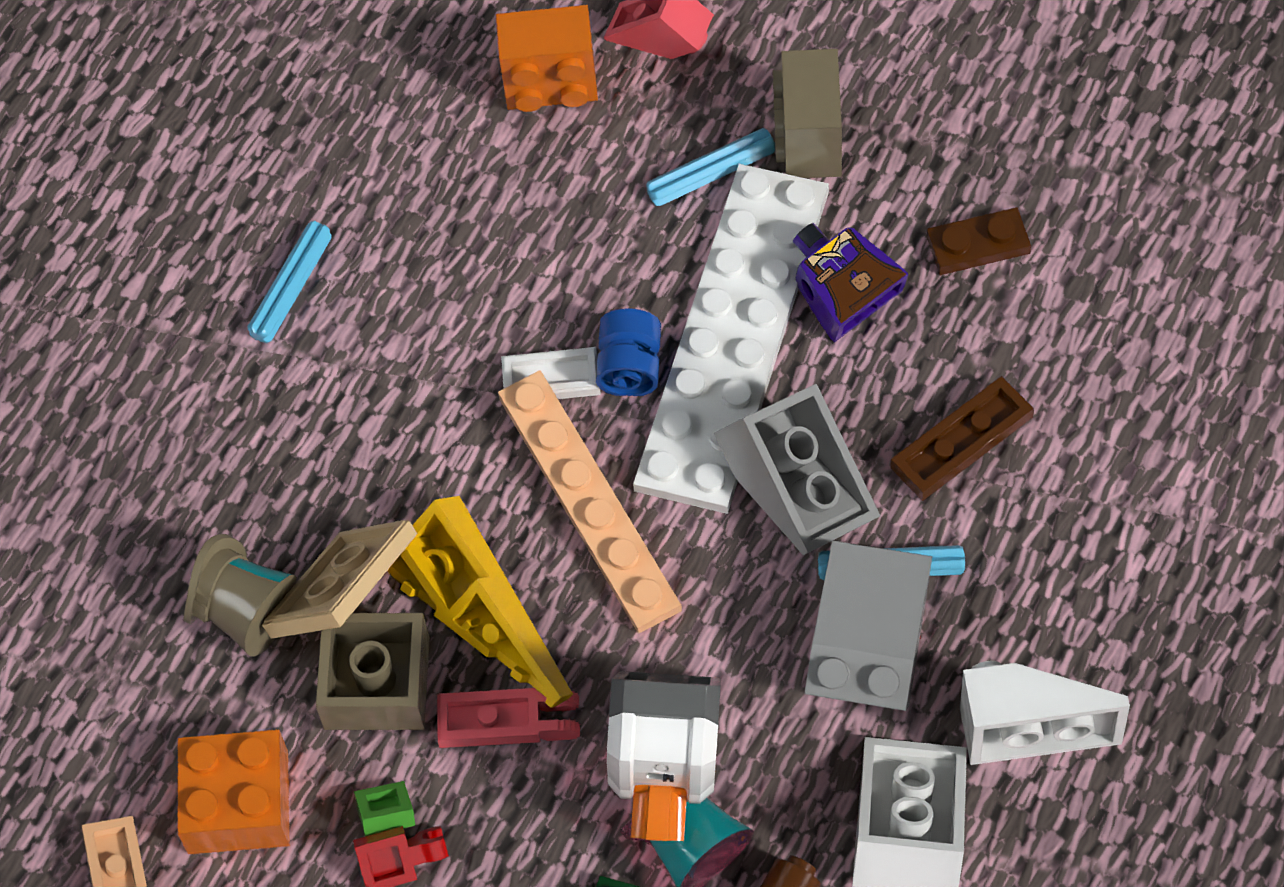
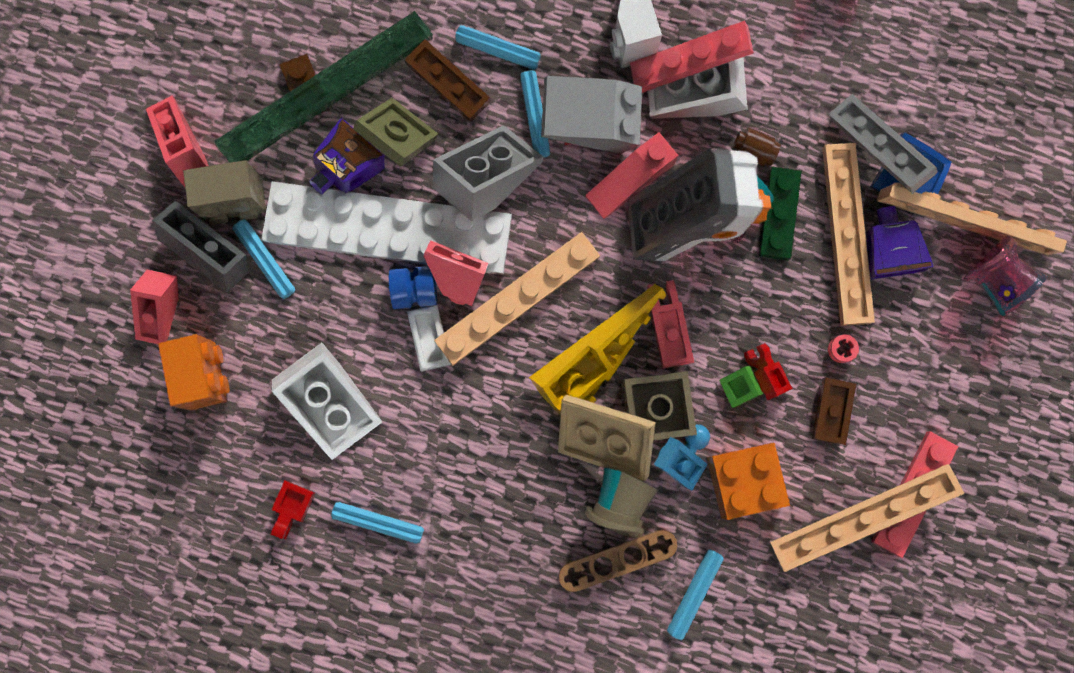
camera: 105 degrees left, 20 degrees up
(82, 700) = (695, 594): none -> medium azure axle
(156, 597) = (616, 556): none -> medium nougat beam
(280, 694) = (681, 461): none -> dark azure plate
(336, 175) = (292, 504): none -> red plate
(480, 225) = (325, 401): none -> white slope
(640, 406) = (455, 272): none -> coral slope
(731, 82) = (200, 246): none -> dark grey brick
(765, 695) = (632, 175): none -> coral slope
(879, 349) = (395, 131): none -> olive plate
(902, 65) = (175, 138): none -> coral slope
(946, 794) = (692, 57): none -> coral plate
(962, 260) = (323, 90): none -> clear green plate
(1013, 520) = (497, 47): none -> medium azure axle

